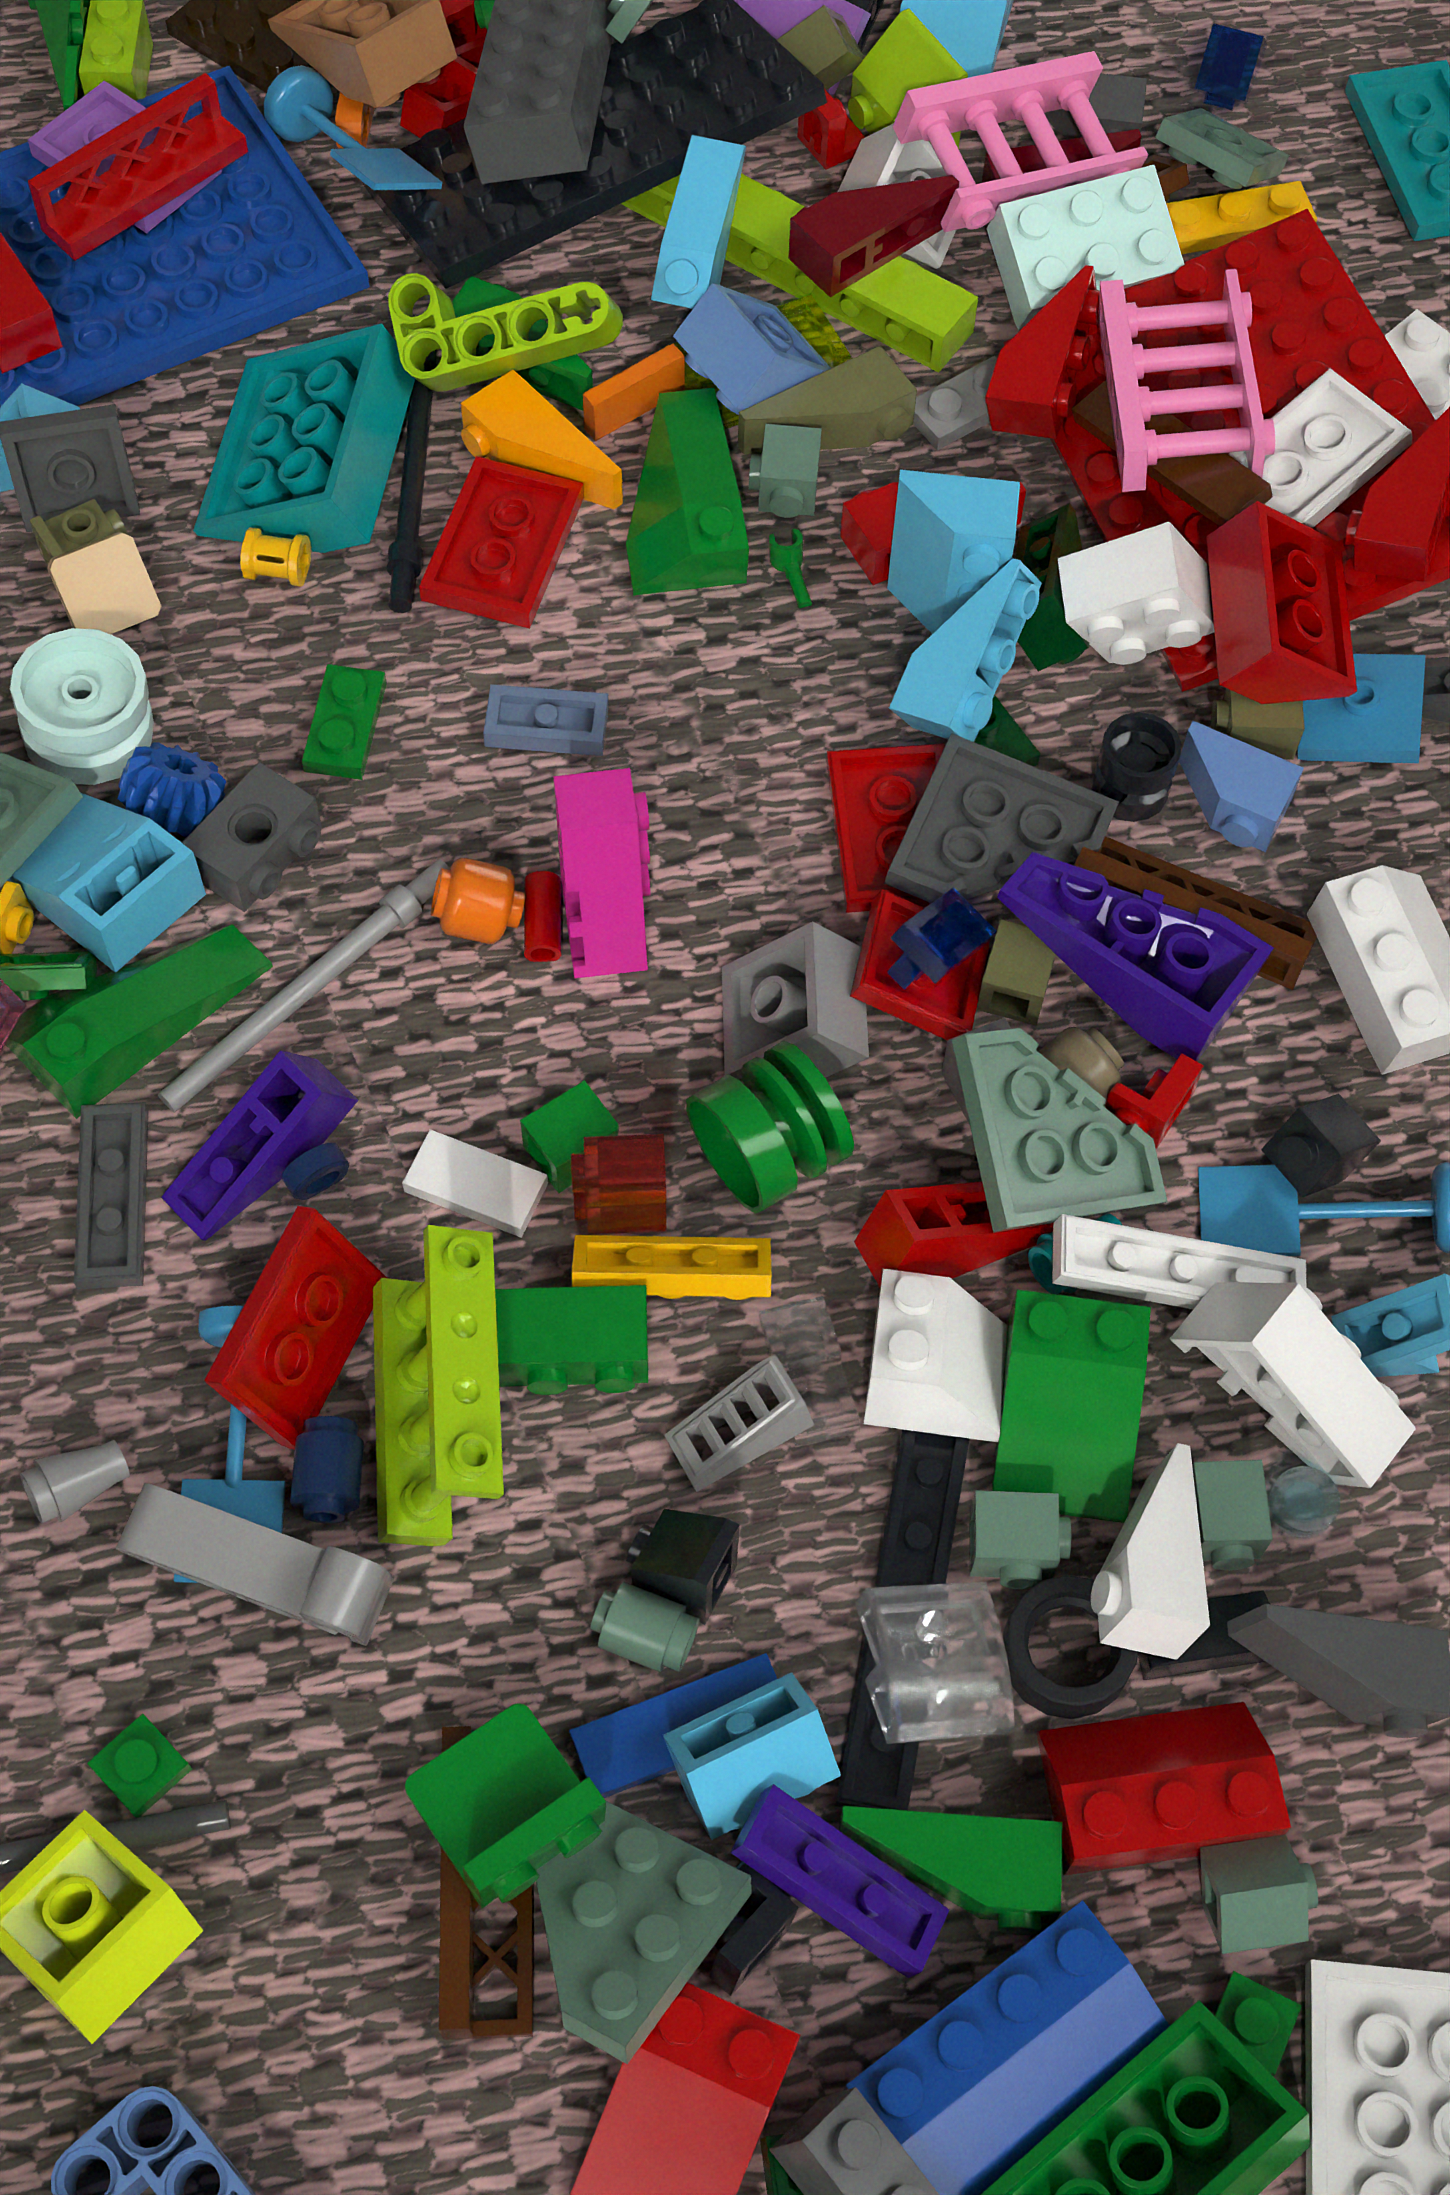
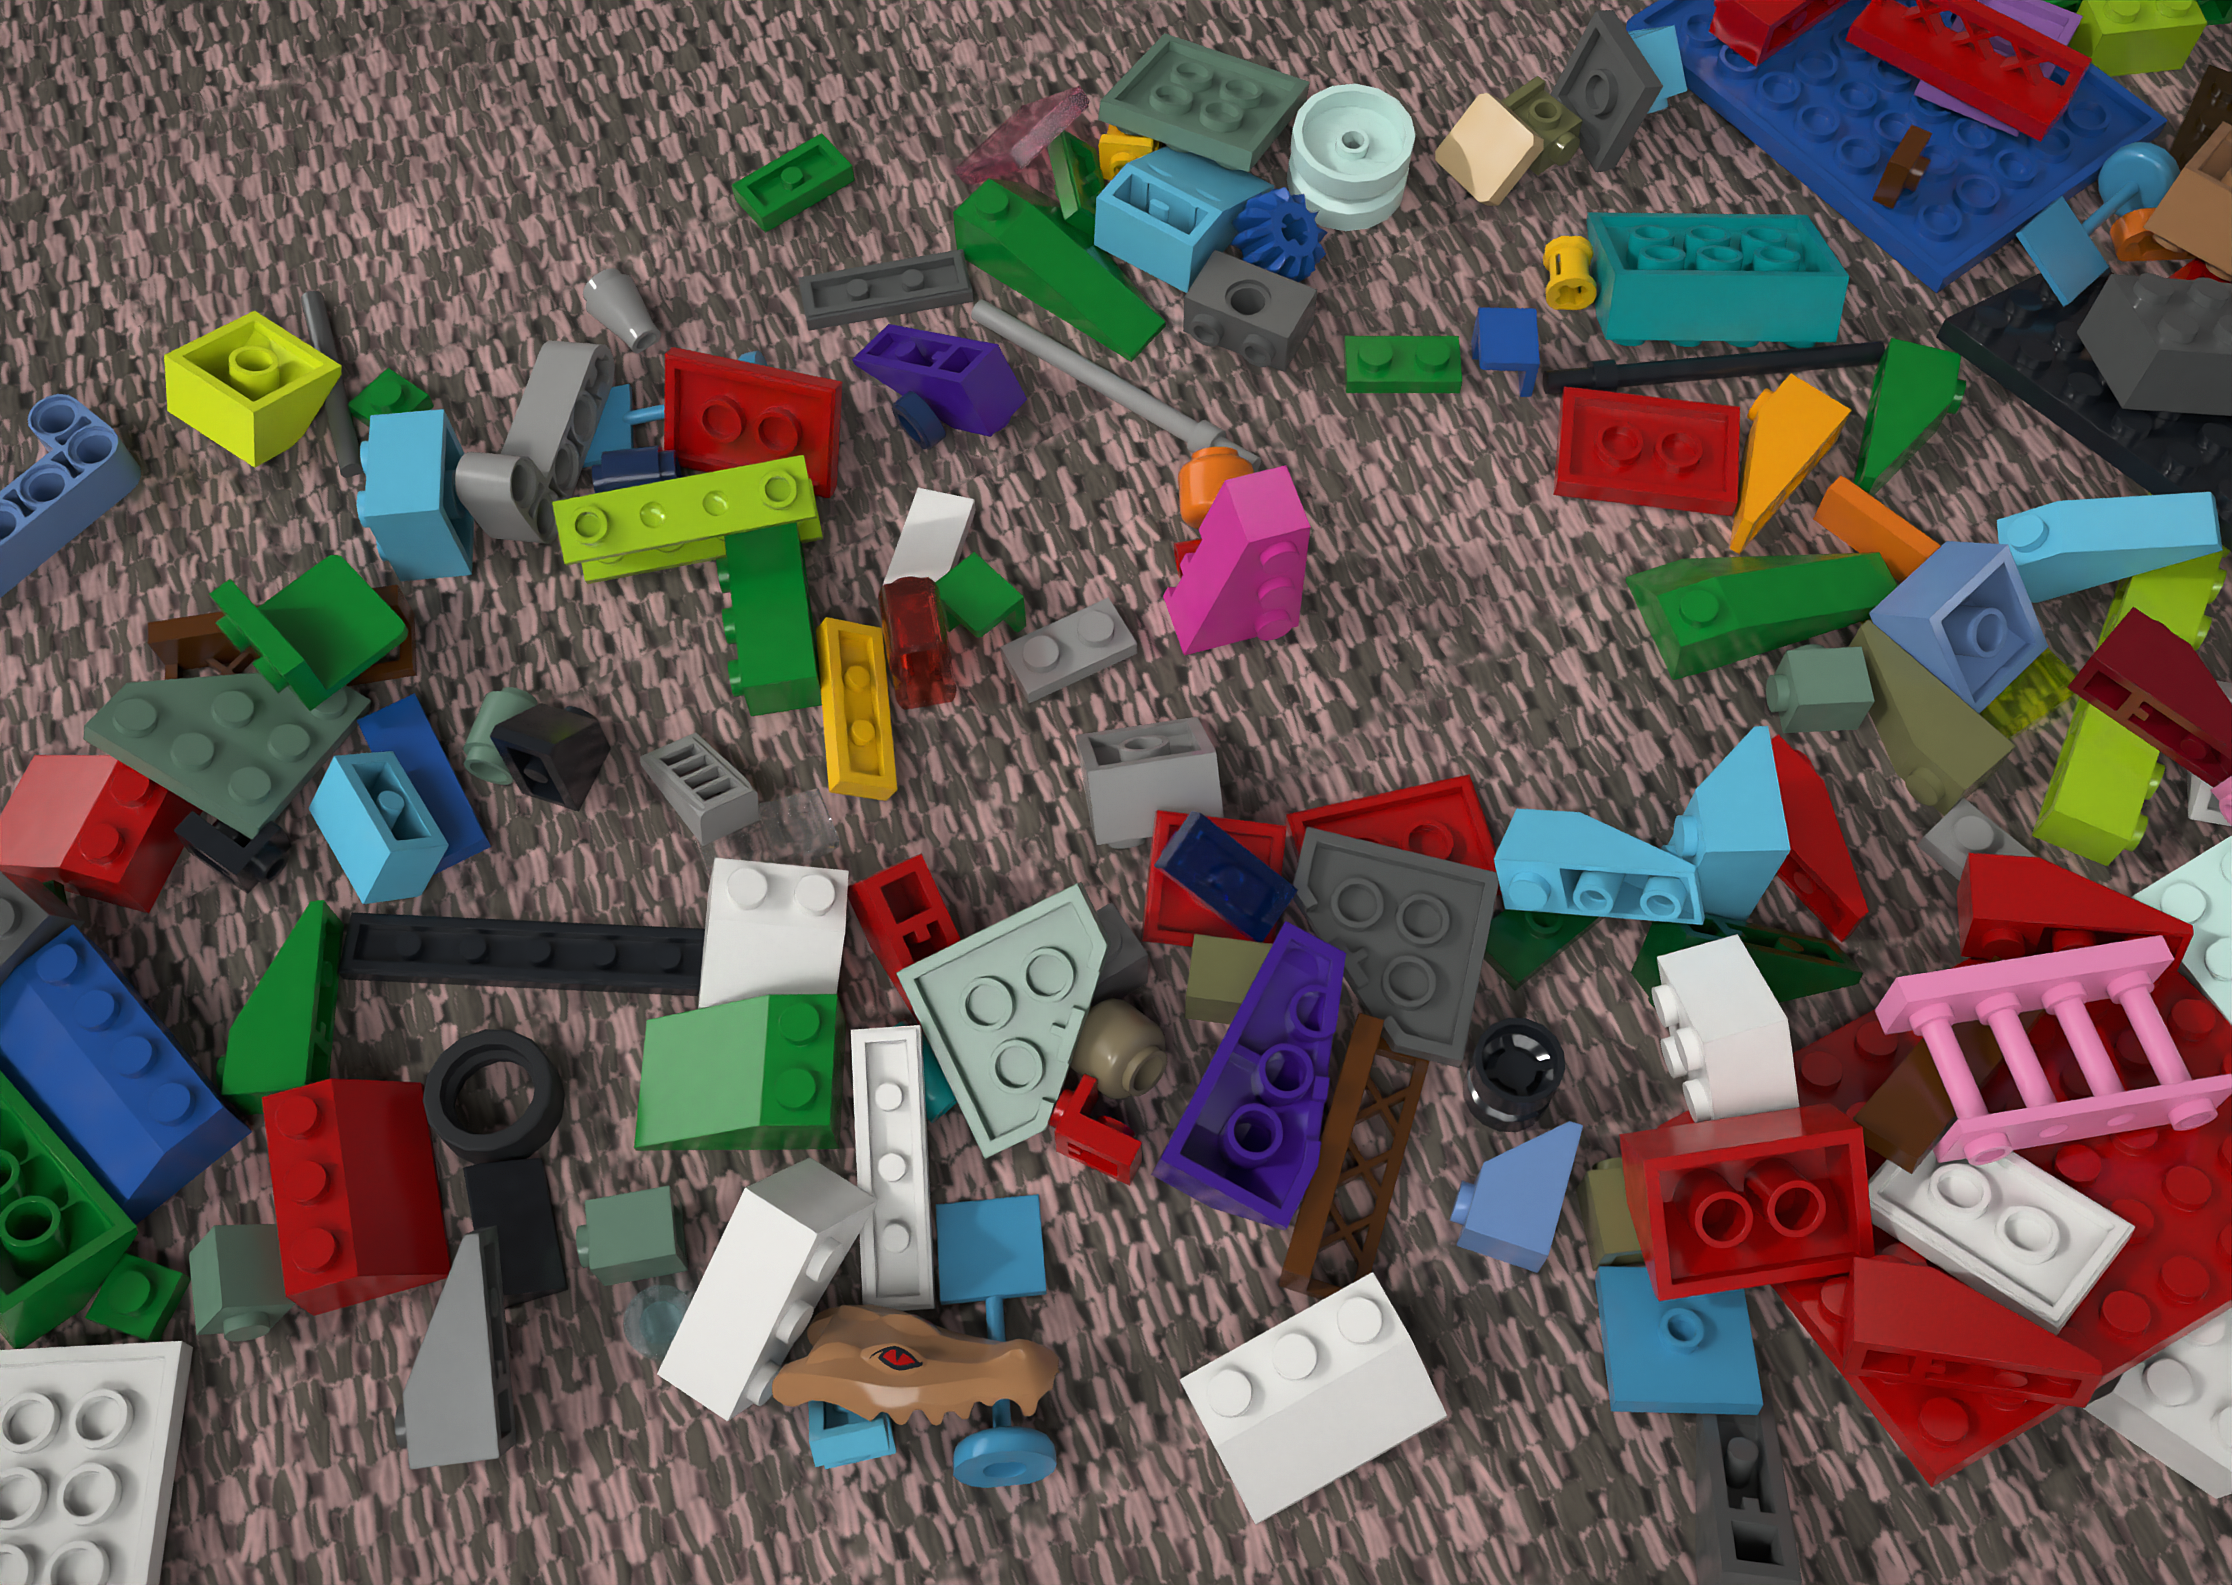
camera: 85 degrees right, 0 degrees up
(244, 259) = (1904, 168): none -> reddish brown plate
(321, 1699) = (414, 497): none -> medium azure brick
(359, 616) = (1508, 342): none -> blue panel
(508, 322) = (1853, 351): lime beam -> none
(546, 720) = (1441, 521): sand blue plate -> none
(628, 1067) = (1068, 650): none -> light grey plate
(770, 1126) = (993, 756): green wheel -> none
(788, 560) = (1709, 714): green hand -> none
(840, 1881) = (263, 907): dark purple plate -> none
(936, 1662) = (466, 970): clear slope -> none
(1017, 1537) = (599, 1036): sand green brick -> none
(1154, 1578) = (547, 1147): white slope -> none
(1320, 1145) = (1059, 1304): black brick -> none
(1384, 1256) = (900, 1363): none -> medium nougat animal

